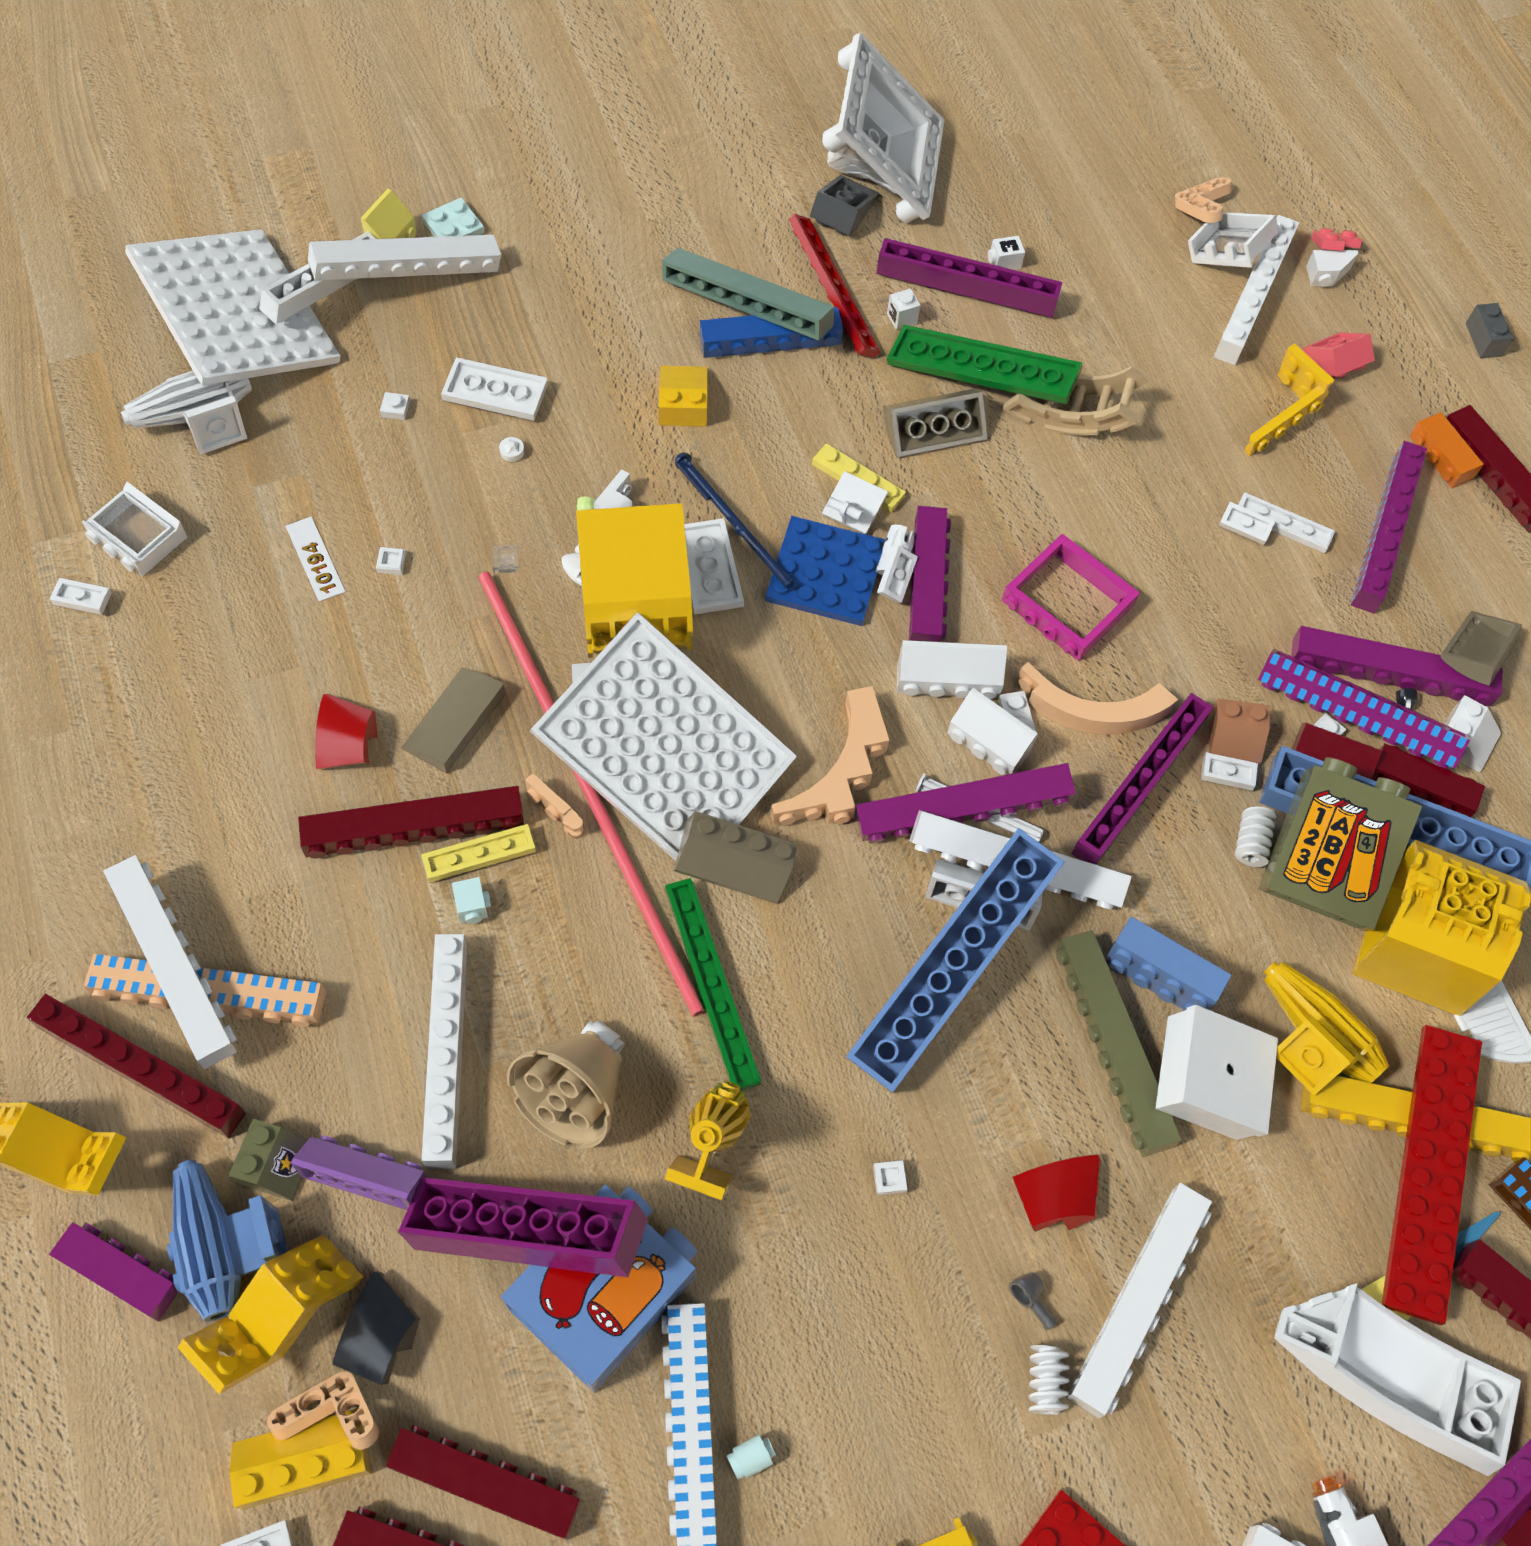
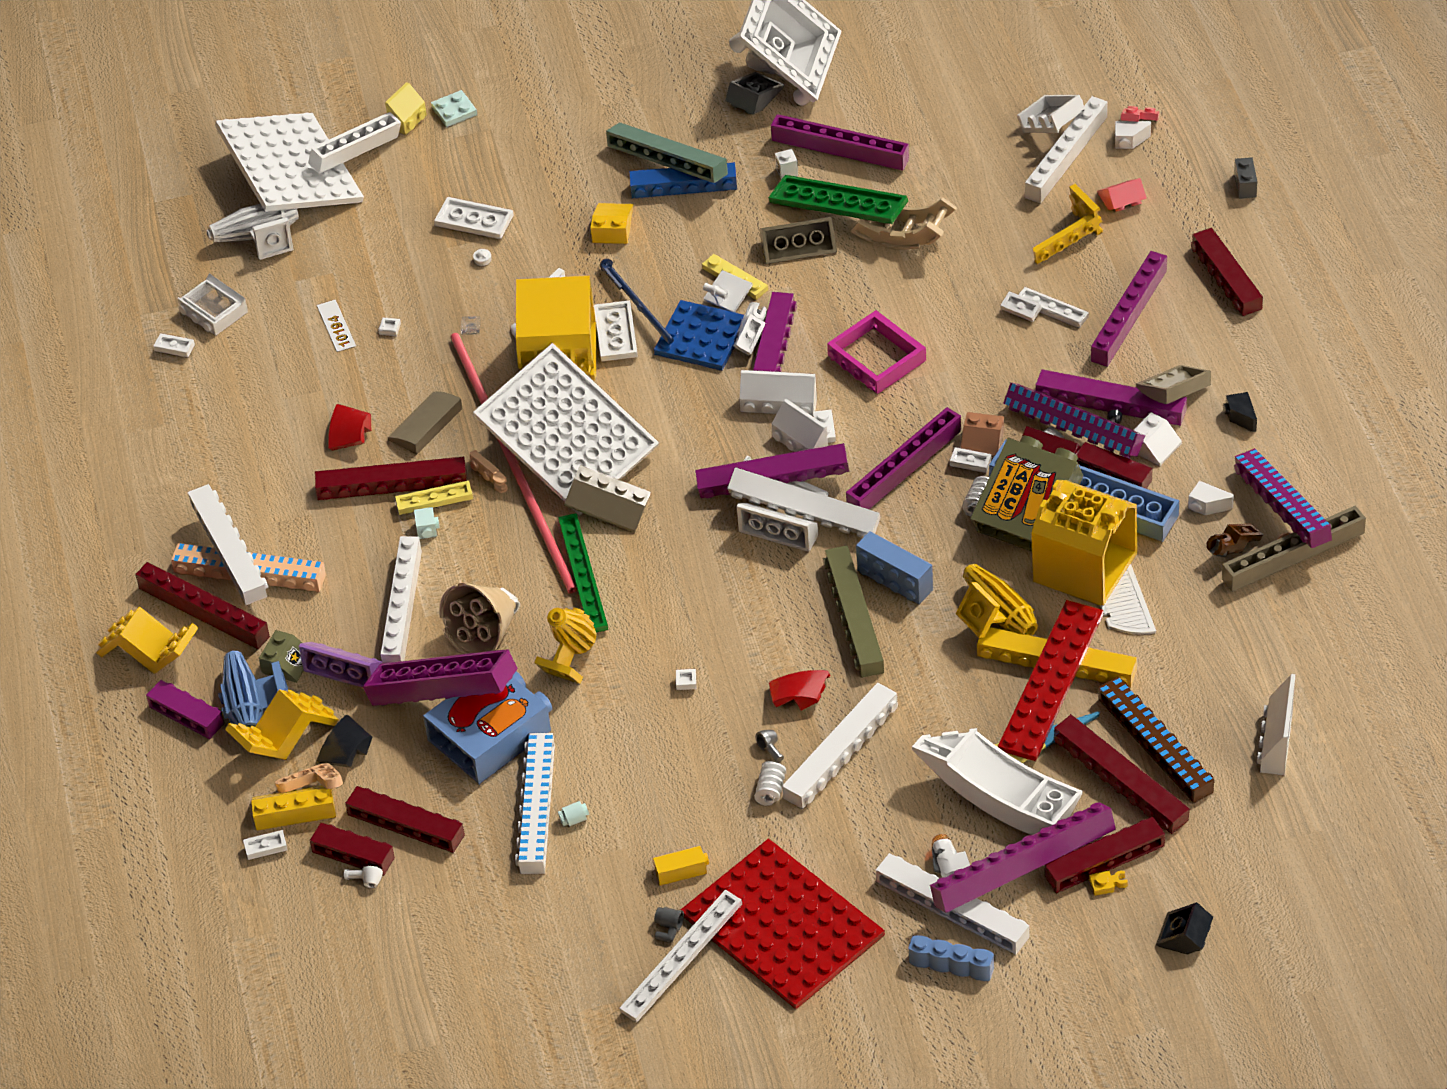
camera: 15 degrees right, 15 degrees down
(394, 406) = (400, 229): white plate -> none
(403, 257) = (415, 128): white brick -> none
(834, 286) = (736, 148): red plate -> none
(852, 770) = (695, 455): light nougat arch -> none
(954, 960) = (743, 552): medium blue brick -> none
(1007, 252) = (874, 125): white brick -> none
(1092, 715) = (879, 425): light nougat arch -> none
(1198, 199) = (1034, 88): light nougat beam -> none
(1217, 1073) = (913, 622): white container -> none
(1446, 450) = (1188, 259): orange brick -> none

